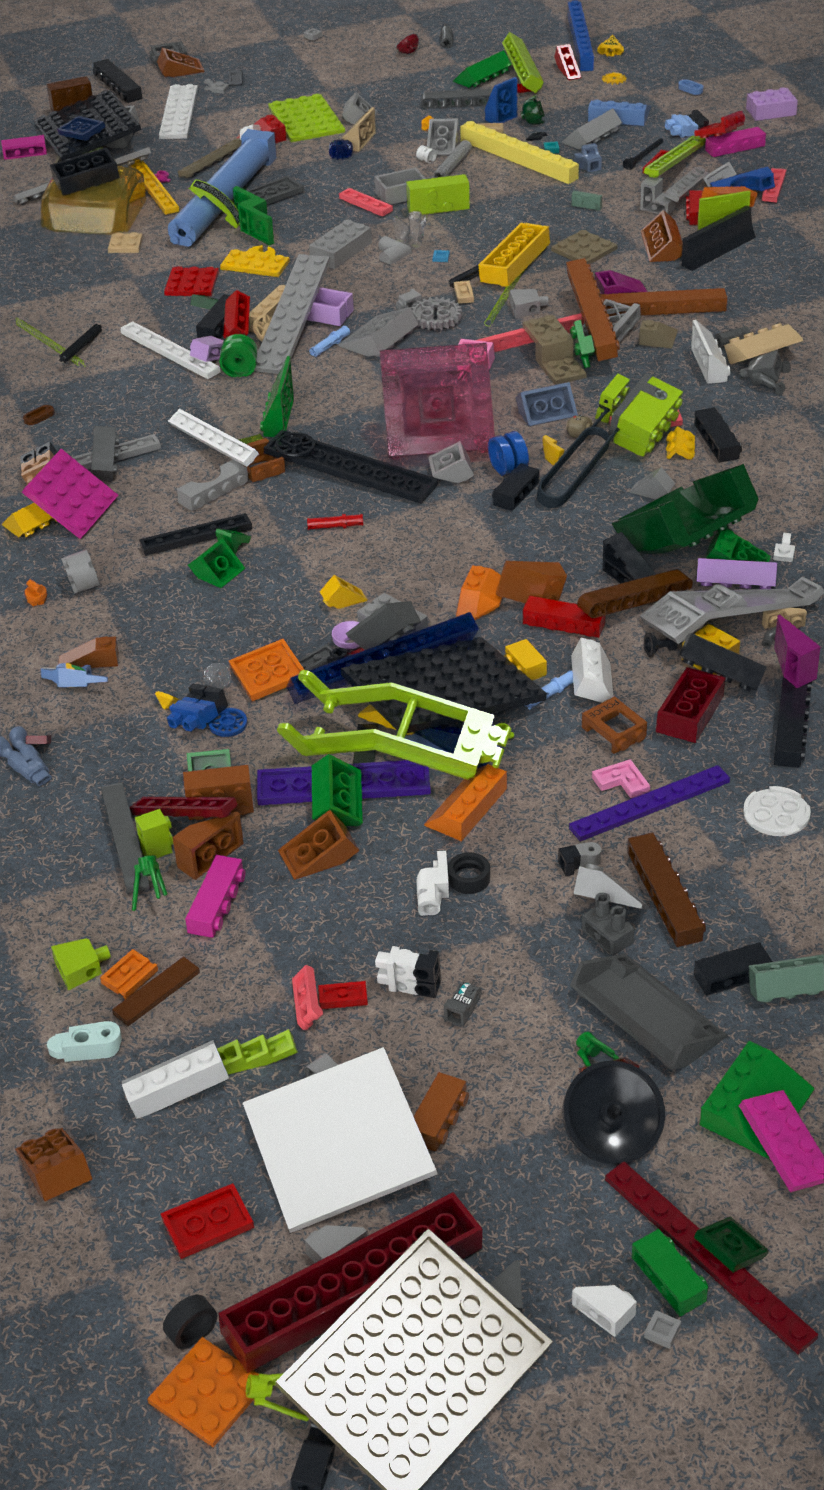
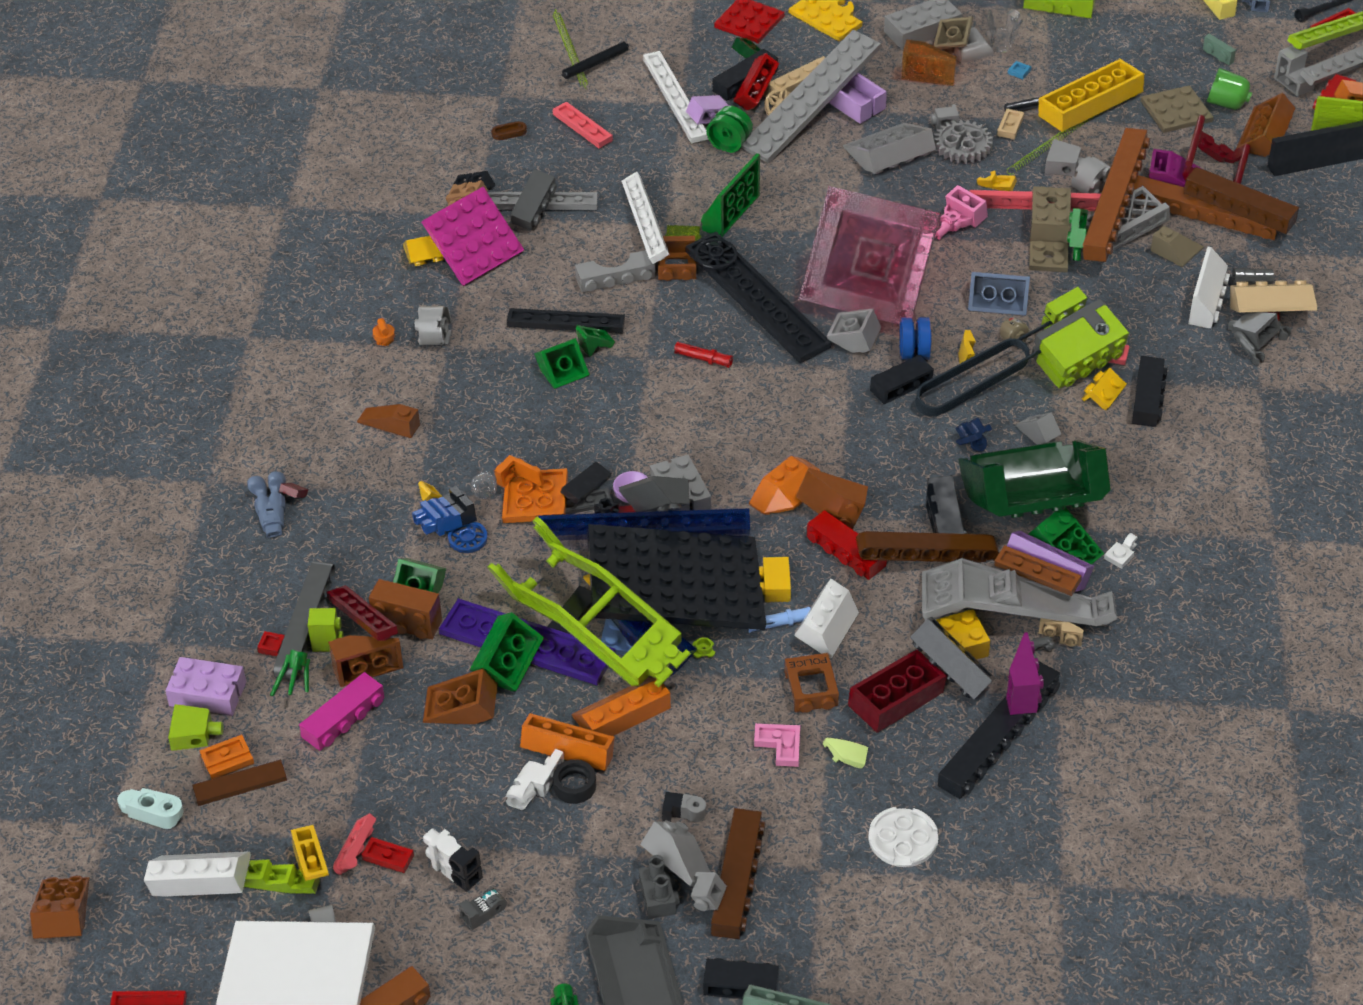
camera: 25 degrees right, 5 degrees up
(68, 921) = (206, 685): none -> lavender piece
(71, 676) = (359, 435): medium blue animal -> none
(103, 391) = (582, 125): none -> coral plate
(106, 867) = (270, 643): none -> red plate
(244, 650) = (512, 466): none -> orange bracket
(273, 1018) = (308, 853): none -> yellow slope
(307, 644) = (585, 482): none -> black tile
(334, 338) = (833, 140): light blue pin -> none
(341, 593) = (655, 438): yellow slope -> none
(369, 267) = (927, 64): none -> clear orange slope
(374, 241) = (953, 32): none -> dark tan slope
(423, 843) = (577, 743): none -> orange brick
(483, 333) = (998, 182): none -> yellow slope
(561, 303) = (1091, 175): none -> light grey brick
(609, 507) = (972, 433): none -> dark blue hips
(617, 222) = (1229, 90): none -> bright green cylinder
(643, 265) = (1218, 152): none -> dark red piece
(649, 803) = (790, 778): dark purple plate -> none
(651, 644) = (910, 609): black piece -> none
(658, 907) = (708, 891): none -> light grey brick
(681, 764) = (847, 752): none -> yellowish green slope
(689, 286) = (1241, 200): none -> reddish brown brick
(737, 579) = (1038, 570): none -> dark orange plate

